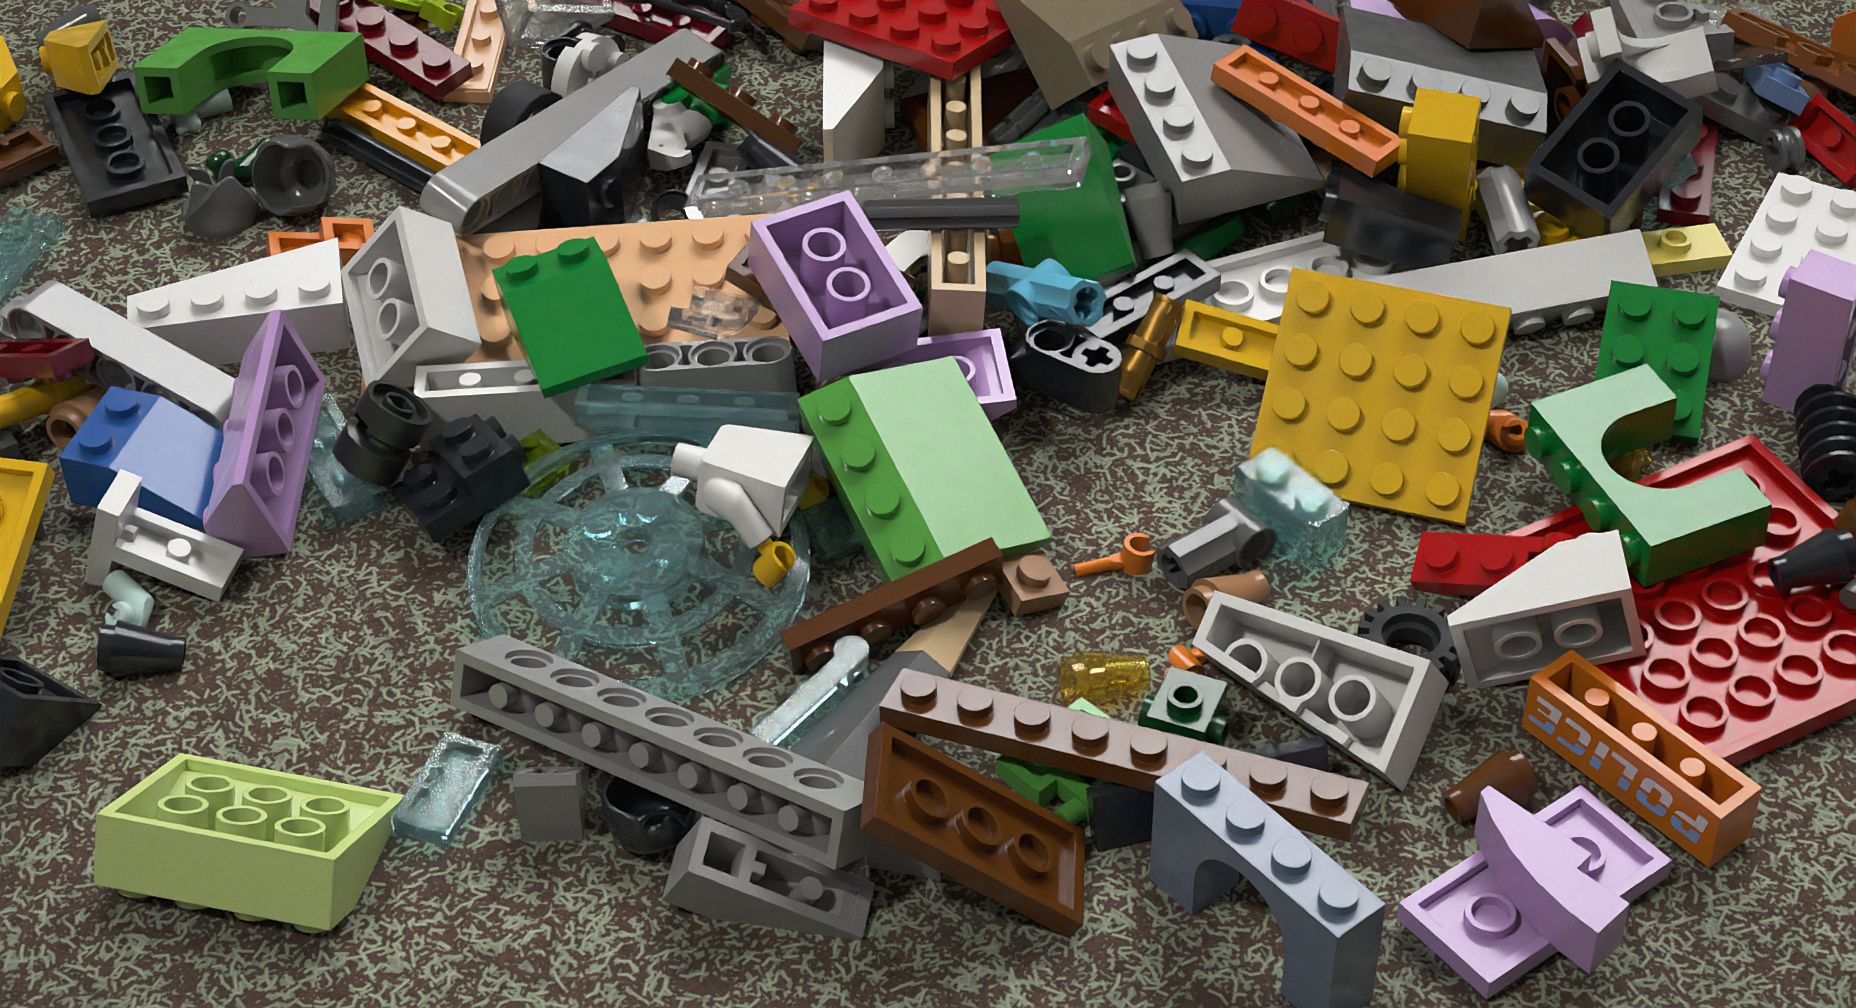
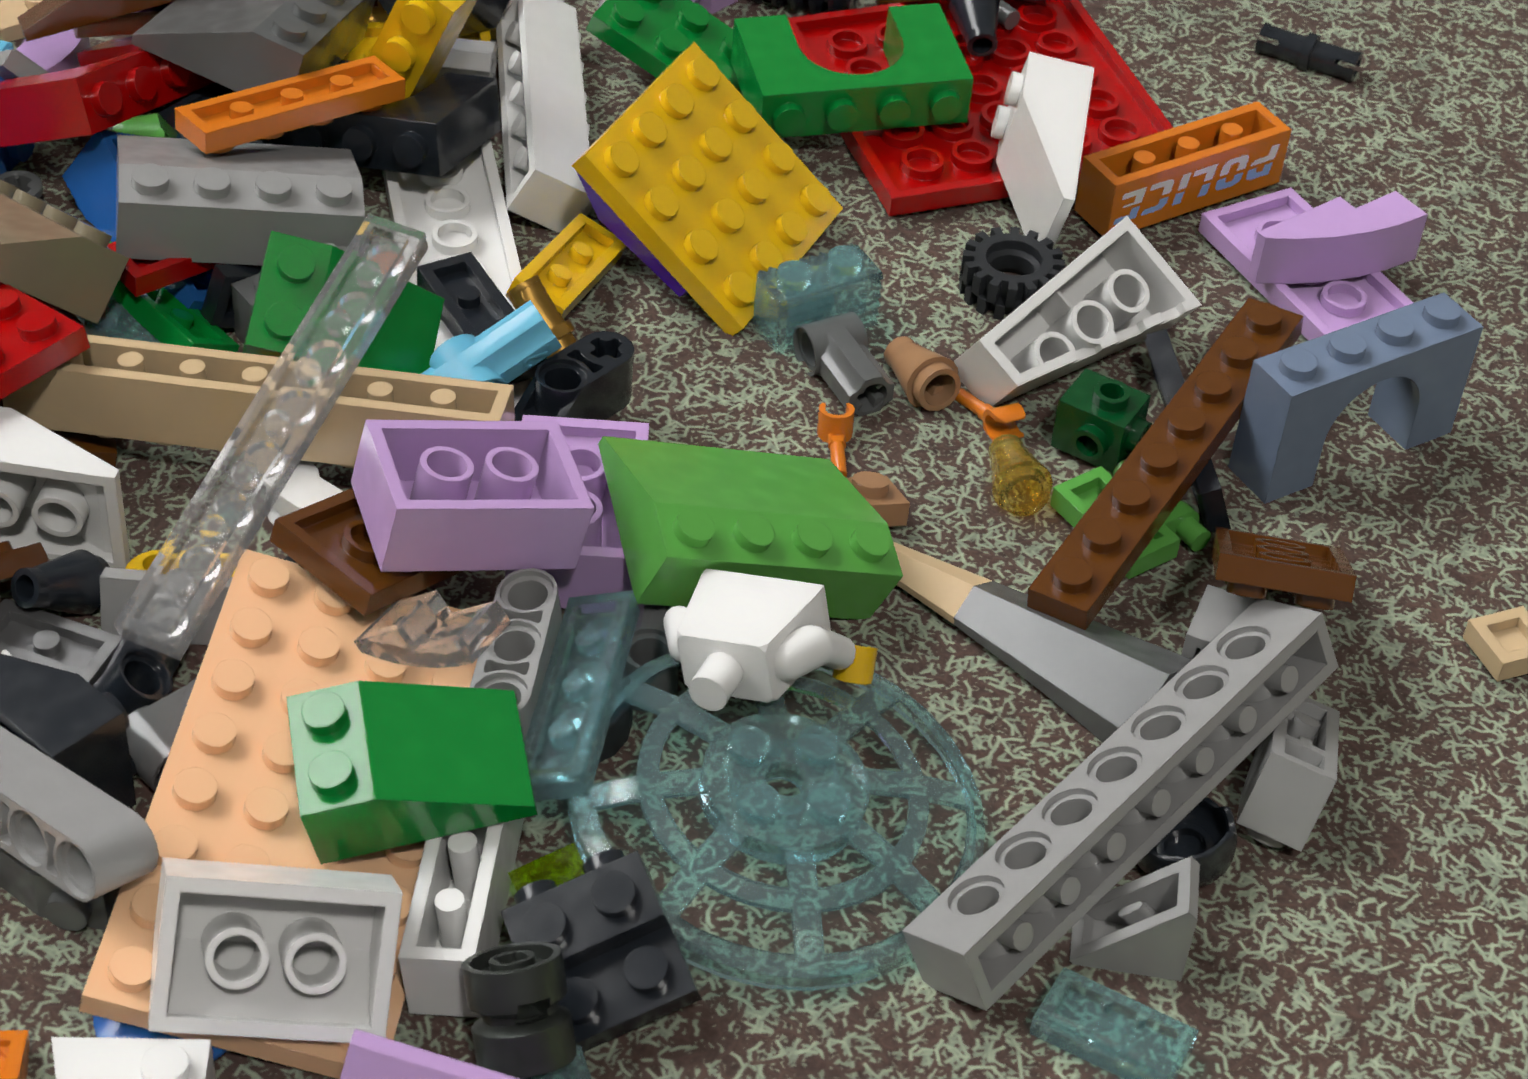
camera: 85 degrees left, 0 degrees up
(816, 696) = (1035, 686): clear light blue plate -> none
(905, 601) = (919, 607): reddish brown plate -> none
(942, 213) = (374, 383): dark grey axle -> none
(1473, 561) = (929, 192): red plate -> none
(1504, 772) = (1192, 261): reddish brown cone -> none

